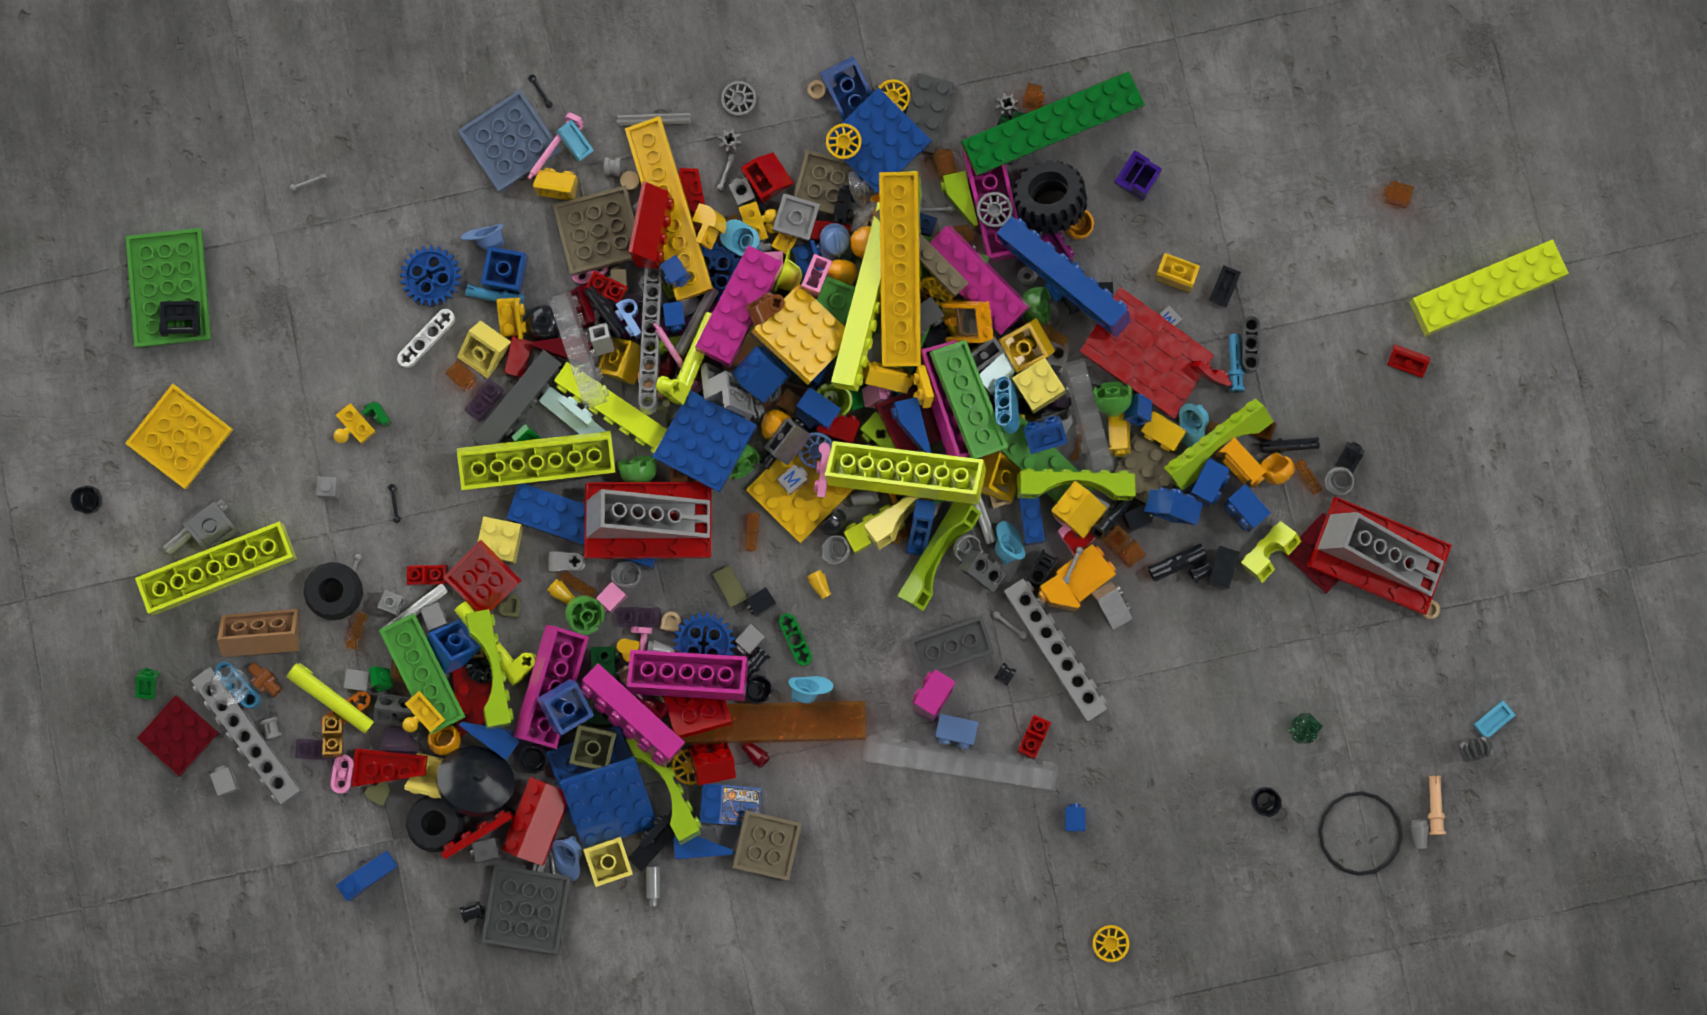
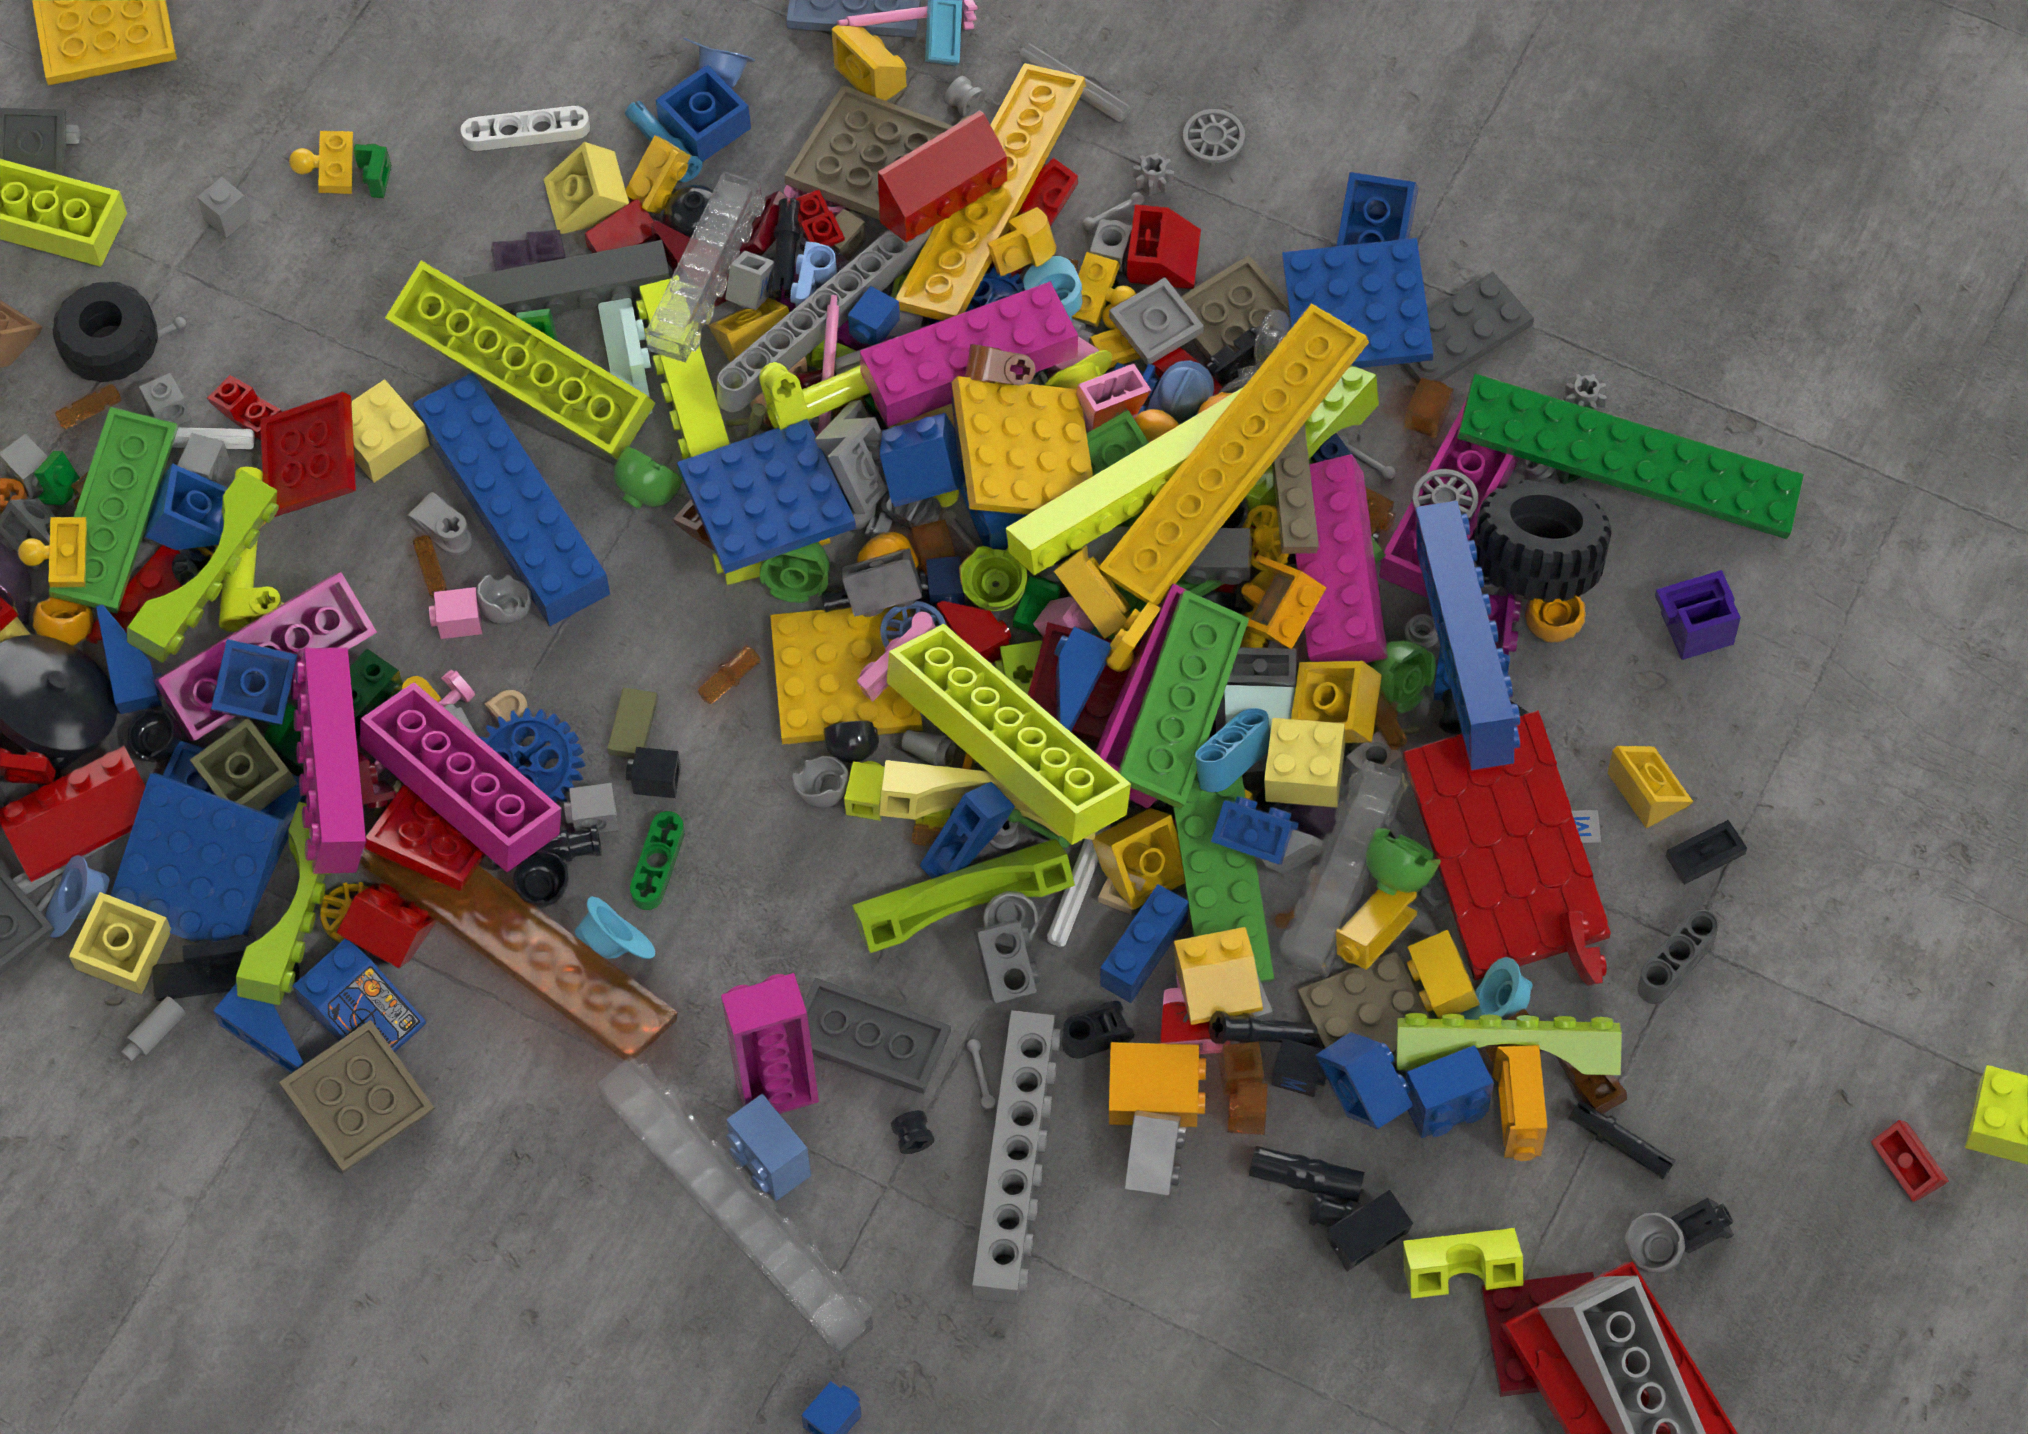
camera: 35 degrees right, 20 degrees down
(392, 488) = (306, 273): black hinge -> none
(422, 261) = (602, 58): blue gear -> none
(461, 375) = (526, 200): clear orange brick -> none
(510, 607) = (315, 529): olive tile -> none
(560, 591) = (397, 556): yellow cone -> none
(584, 614) = (398, 601): bright green cylinder -> none
(639, 617) = (478, 672): clear purple slope -> none
(647, 520) = (594, 539): piece -> none
(675, 272) = (924, 259): blue brick -> none
(757, 755) = (458, 970): dark red cone -> none
(793, 479) = (844, 641): light grey brick -> none
(816, 90) = (1330, 199): tan tile -> none
(818, 408) = (962, 569): blue panel -> none
(819, 583) = (758, 810): yellow cone -> none
(843, 141) = (1306, 267): yellow wheel -> none
(894, 93) = (1434, 277): yellow wheel -> none
(959, 195) = (1415, 450): lime slope -> none
(1009, 543) = (1077, 956): medium azure piece -> none
(1033, 96) = (1634, 404): clear orange brick -> none
(1034, 737) = (875, 1257): red slope -> none
(1058, 595) = (1084, 1071): light orange slope -> none
(1079, 550) = (1115, 1062): light grey hinge -> none
(1116, 486) = (1187, 893): lime arch -> none
(1139, 410) = (1426, 910): blue brick -> none
(1235, 373) = (1624, 978): dark azure pin -> none
(1246, 508) = (1475, 1170): blue brick -> none
(1277, 469) = (1572, 1155): light orange hair -> none
(1308, 476) = (1613, 1206): clear orange axle -> none

